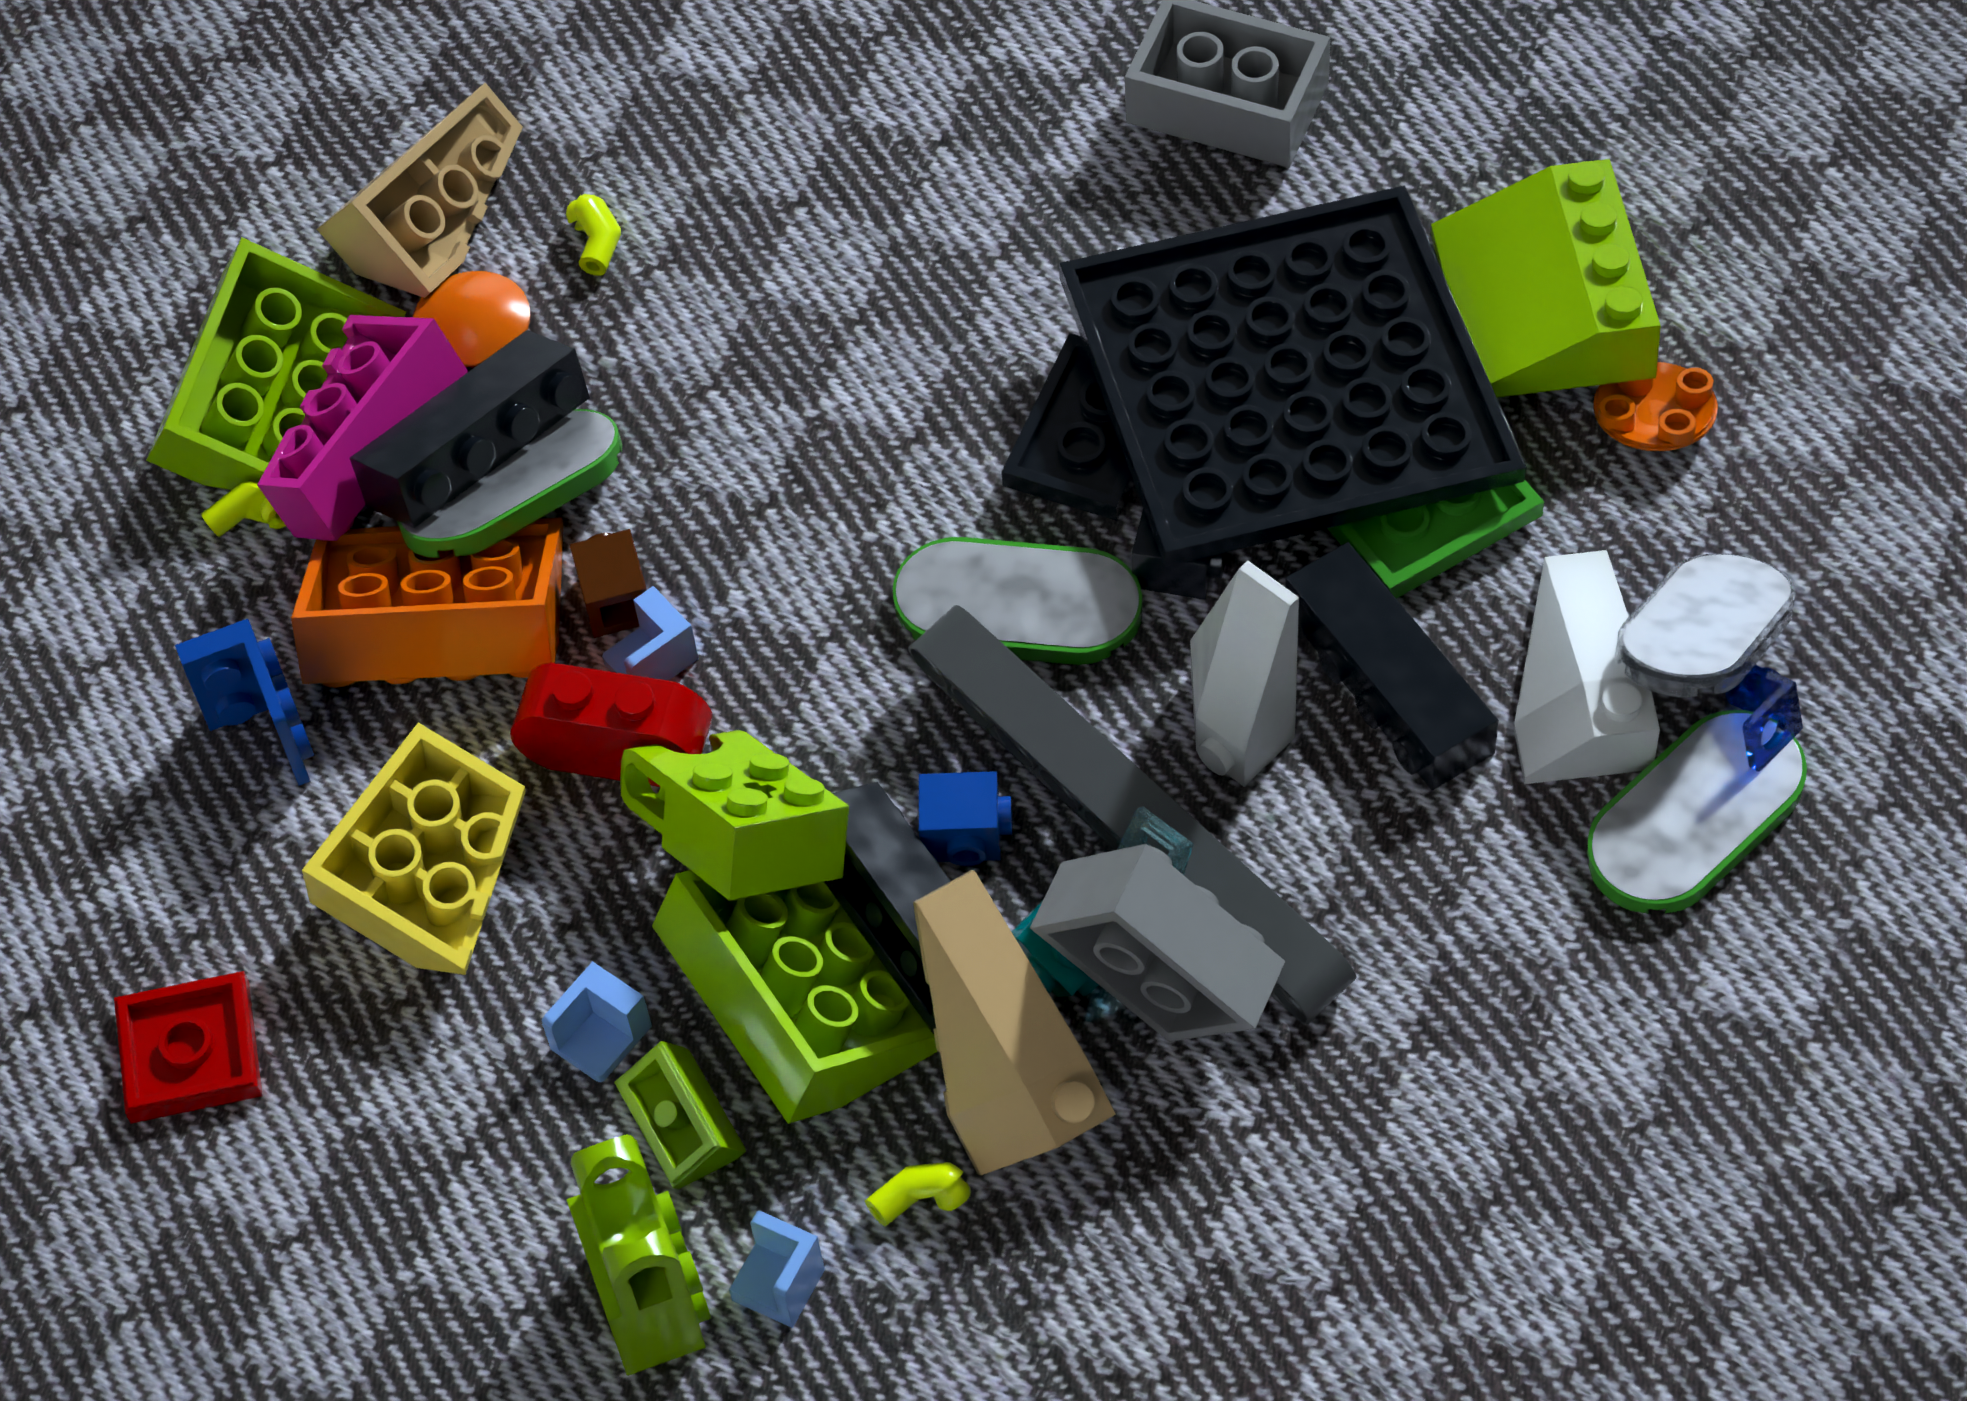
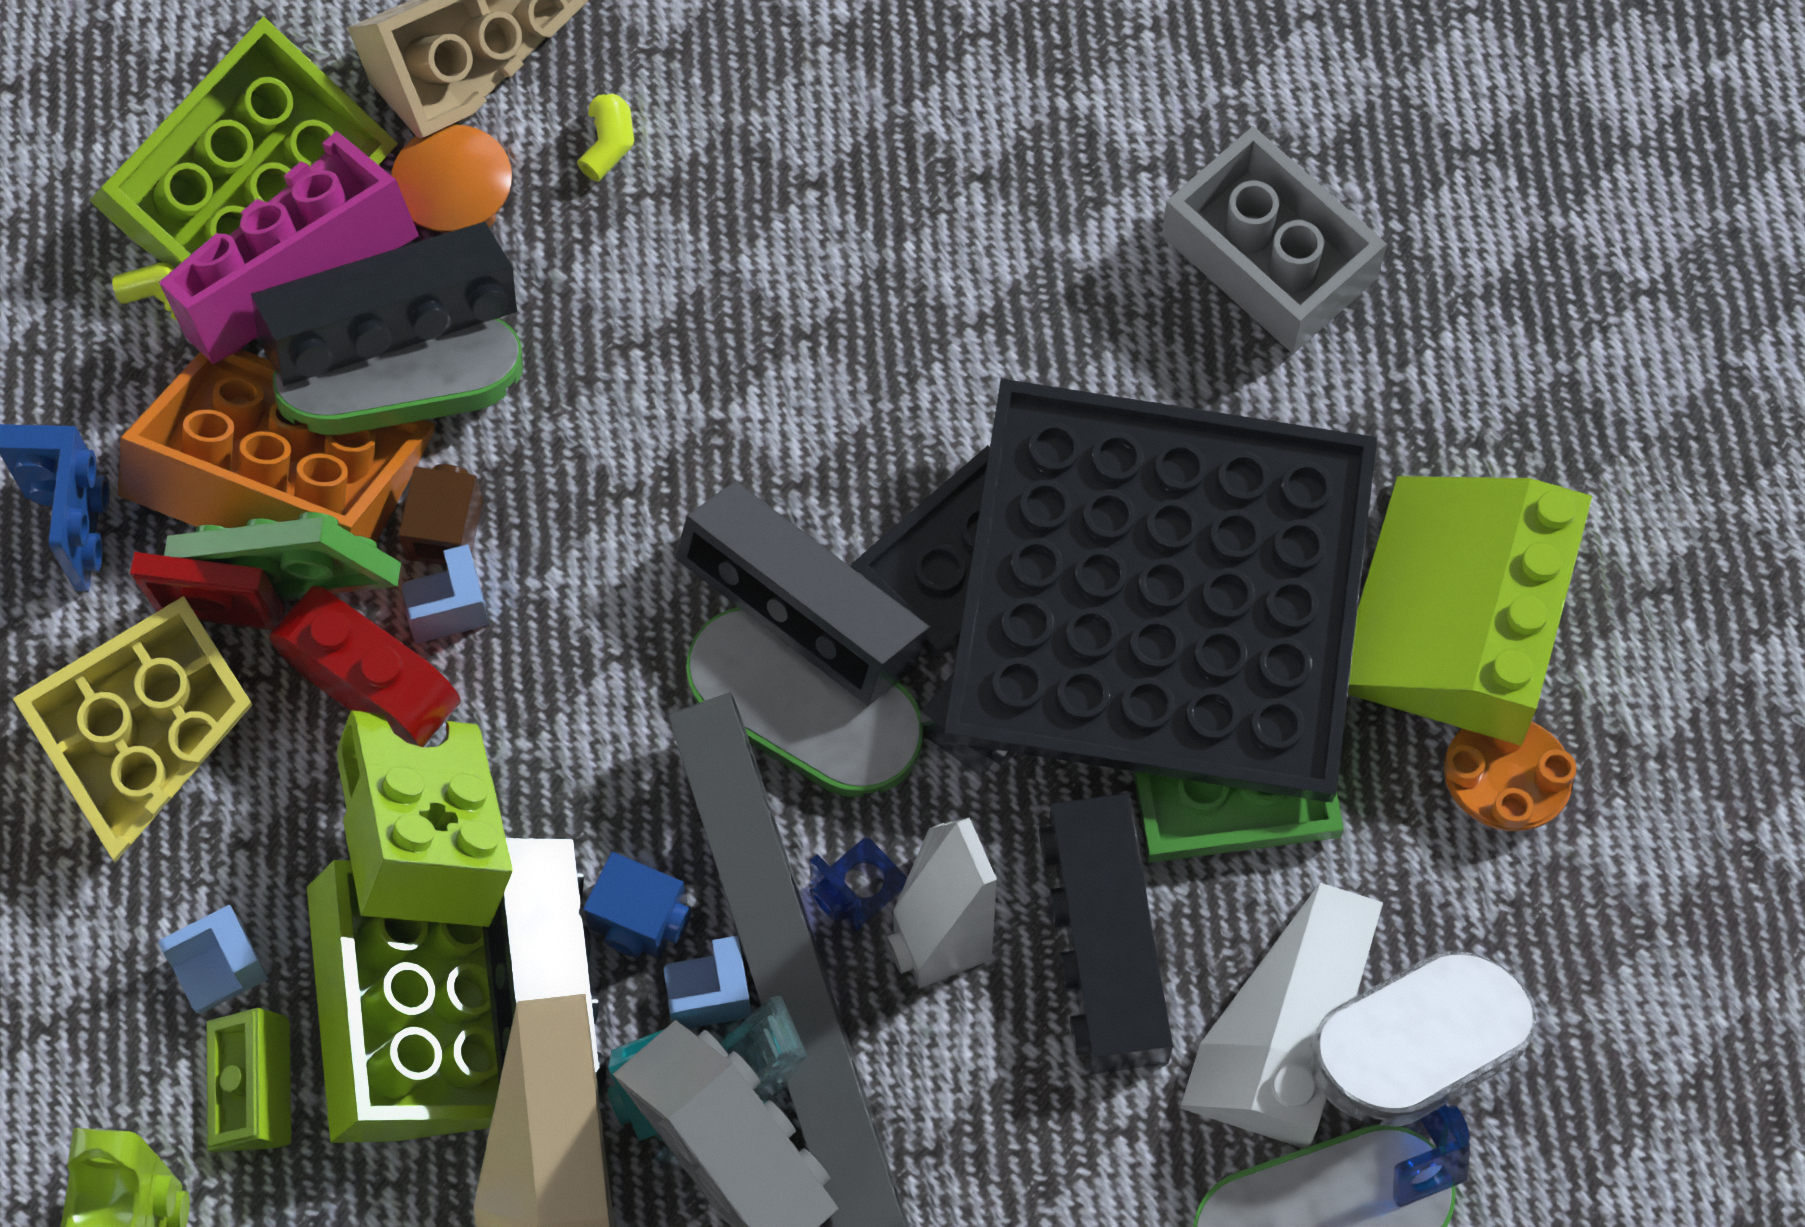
camera: 20 degrees right, 10 degrees up
(452, 704) = (212, 589): none -> red tile
(490, 654) = (294, 554): none -> bright green plate
(972, 507) = (801, 592): none -> black brick
(1070, 837) = (709, 987): none -> light blue panel
(1140, 729) = (839, 899): none -> clear blue bracket

